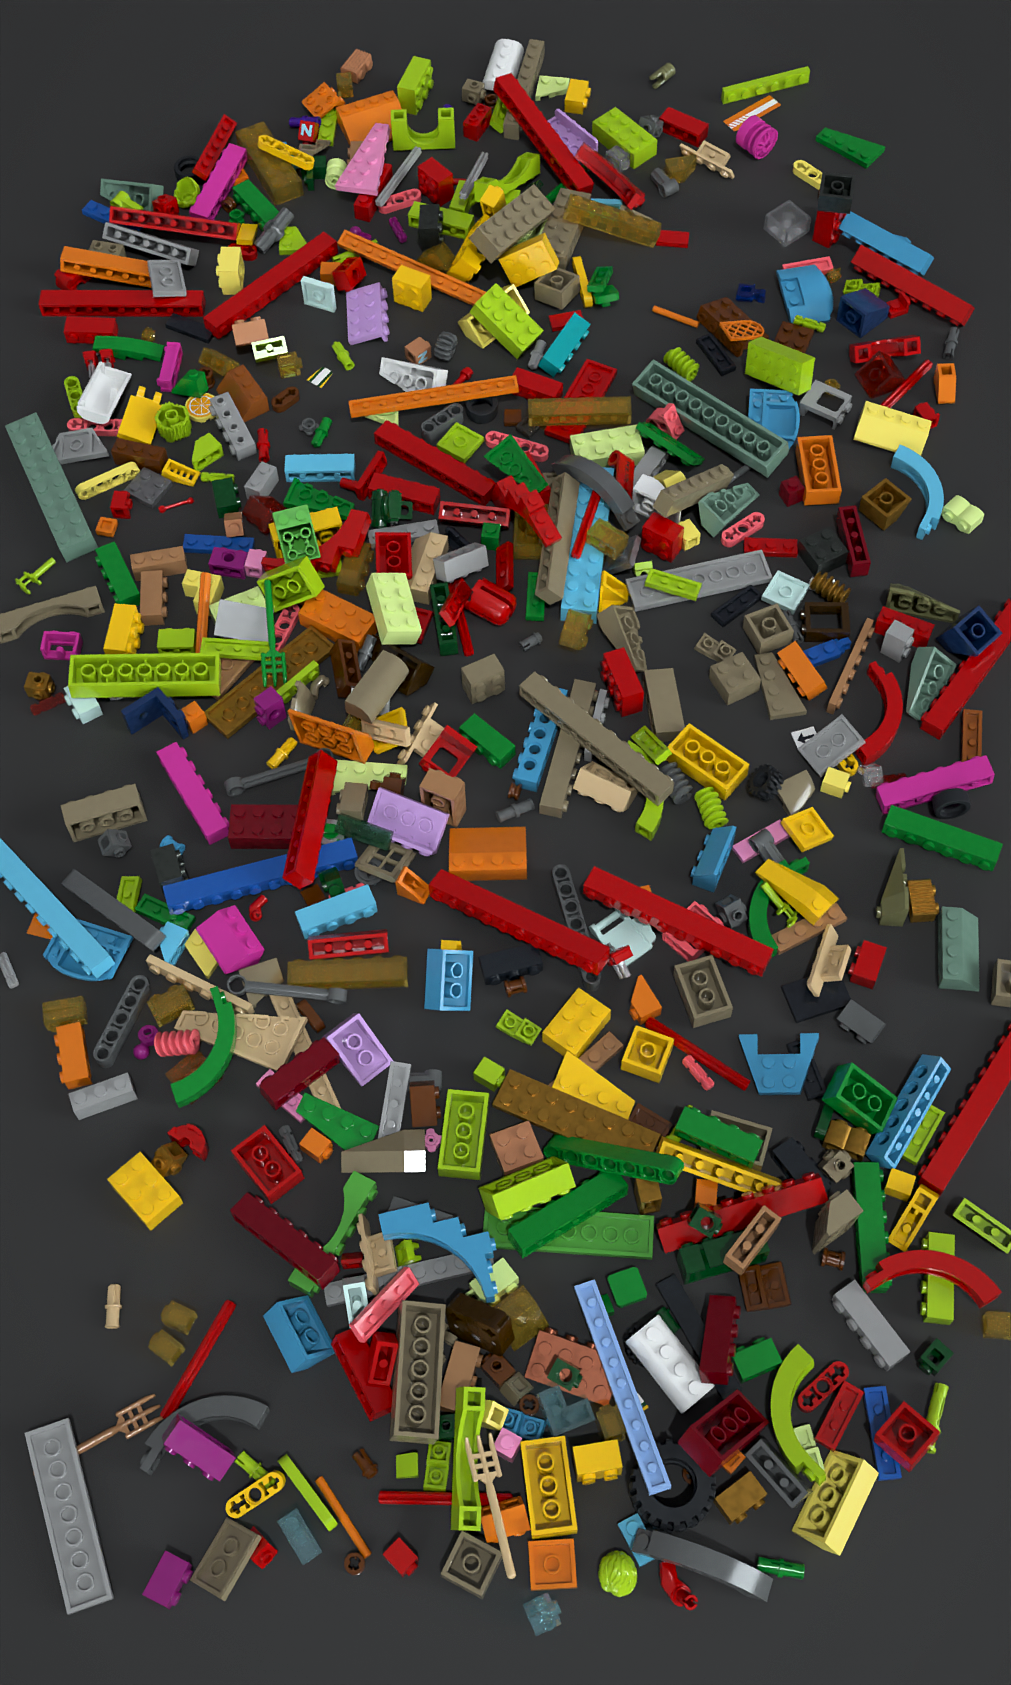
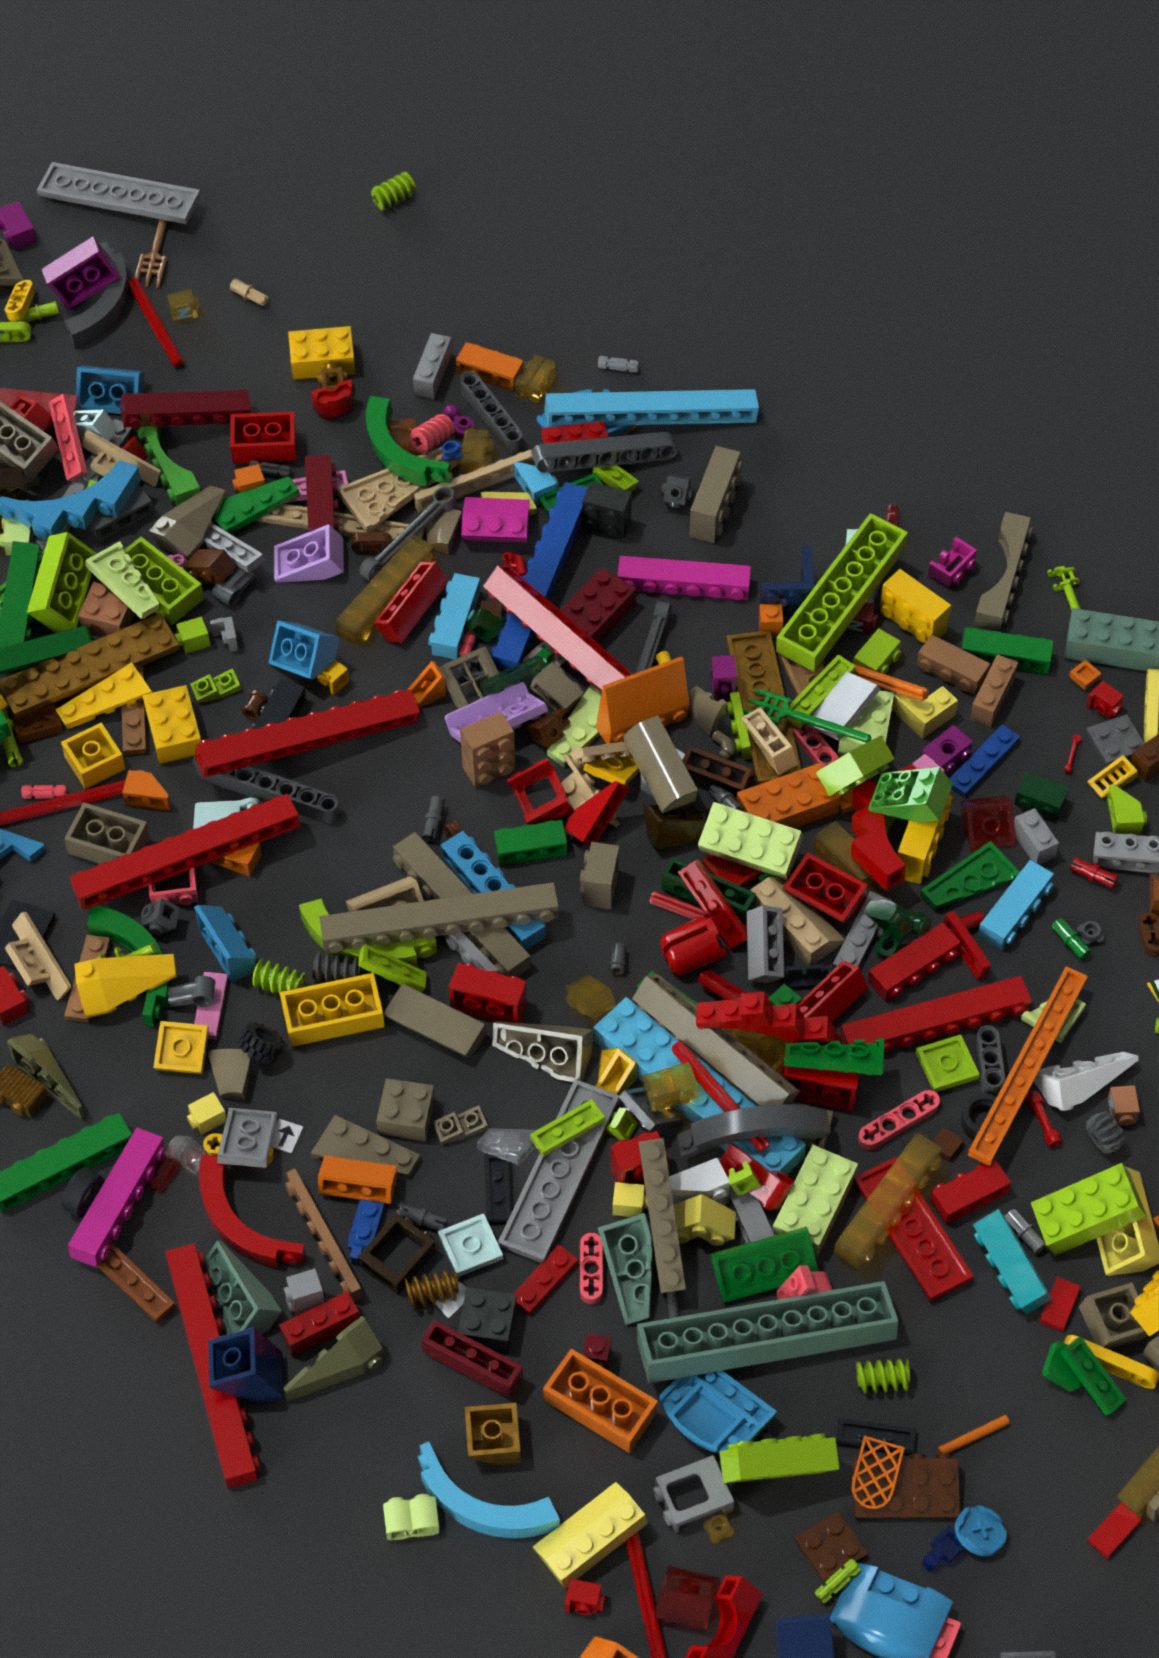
camera: 125 degrees right, 5 degrees down
(39, 685) = (914, 519): pearl gold brick -> none
(112, 937) = (574, 432): none -> red plate
(169, 840) = (638, 533): dark azure bush -> none
(178, 1317) = (198, 324): clear yellow brick -> none
(187, 1007) = (451, 450): none -> blue plate
(206, 477) = (1080, 807): lime axle -> none
(234, 524) = (993, 778): nougat brick -> none
(303, 647) = (770, 741): none -> tan slope
(440, 708) = (594, 815): none -> red slope
(468, 1050) = (225, 628): none -> light grey bracket
(488, 853) = (408, 768): orange slope -> none
(490, 1143) = (117, 572): none -> yellowish green wing
(617, 959) = (198, 789): piece -> none
(635, 469) = (743, 1180): none -> lime tile
(705, 614) = (507, 1144): none -> clear wing
(726, 283) = (980, 1530): none -> dark azure tile
(768, 629) = (434, 1182): dark tan brick -> none

